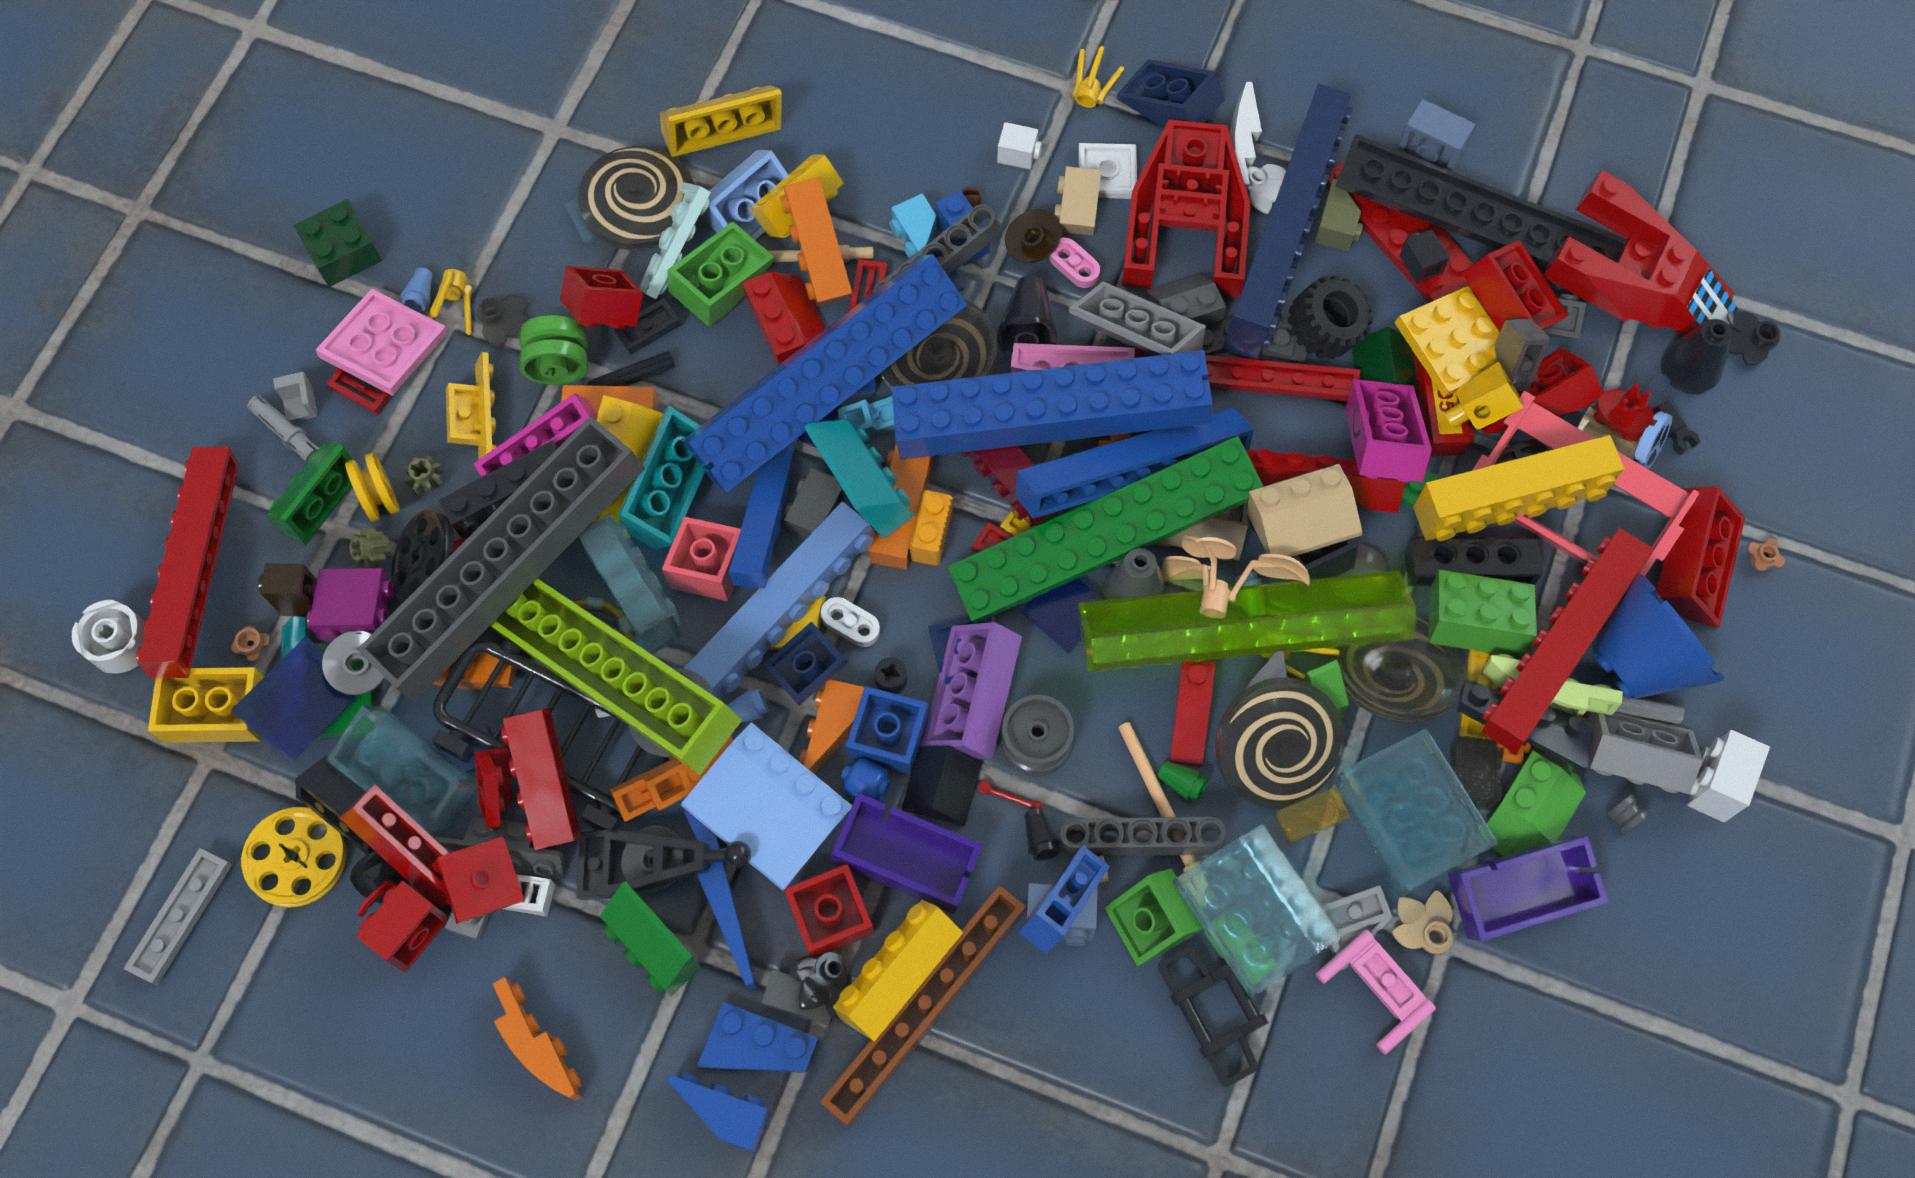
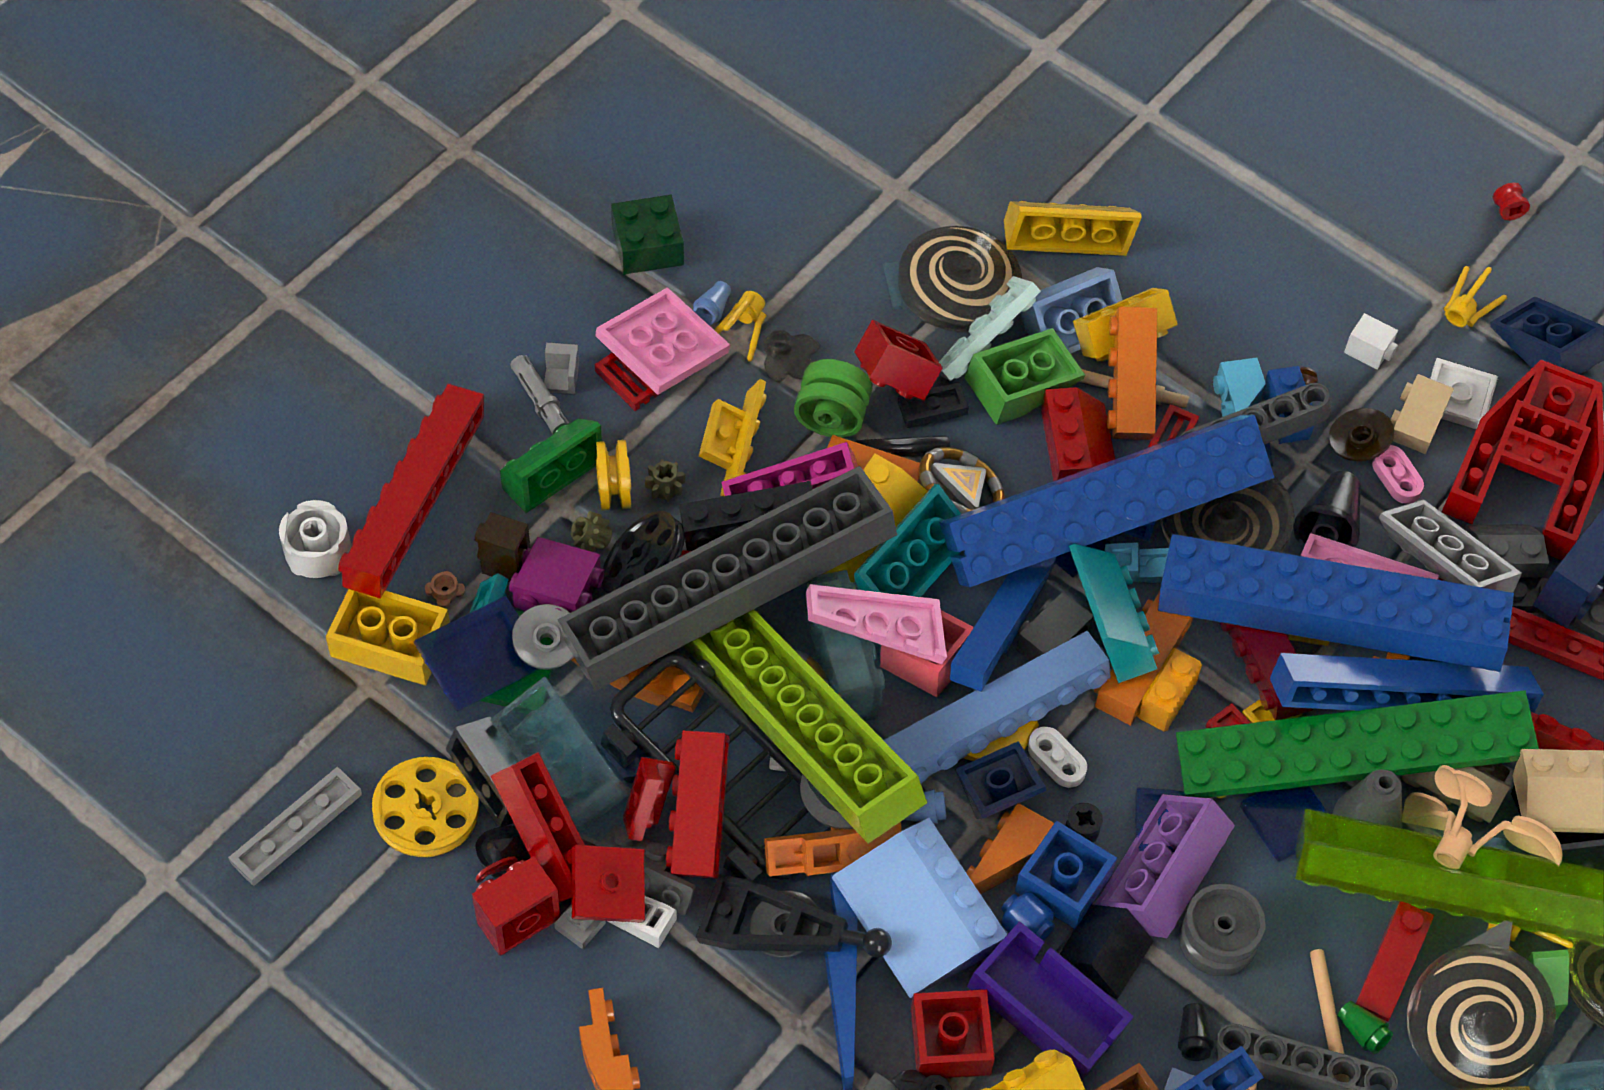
camera: 15 degrees right, 10 degrees down
(648, 941) = (758, 1001): green slope -> none
(657, 550) = (884, 618): none -> bright pink wing
(693, 392) = (961, 482): none -> piece
(985, 788) = (1150, 968): red hinge -> none

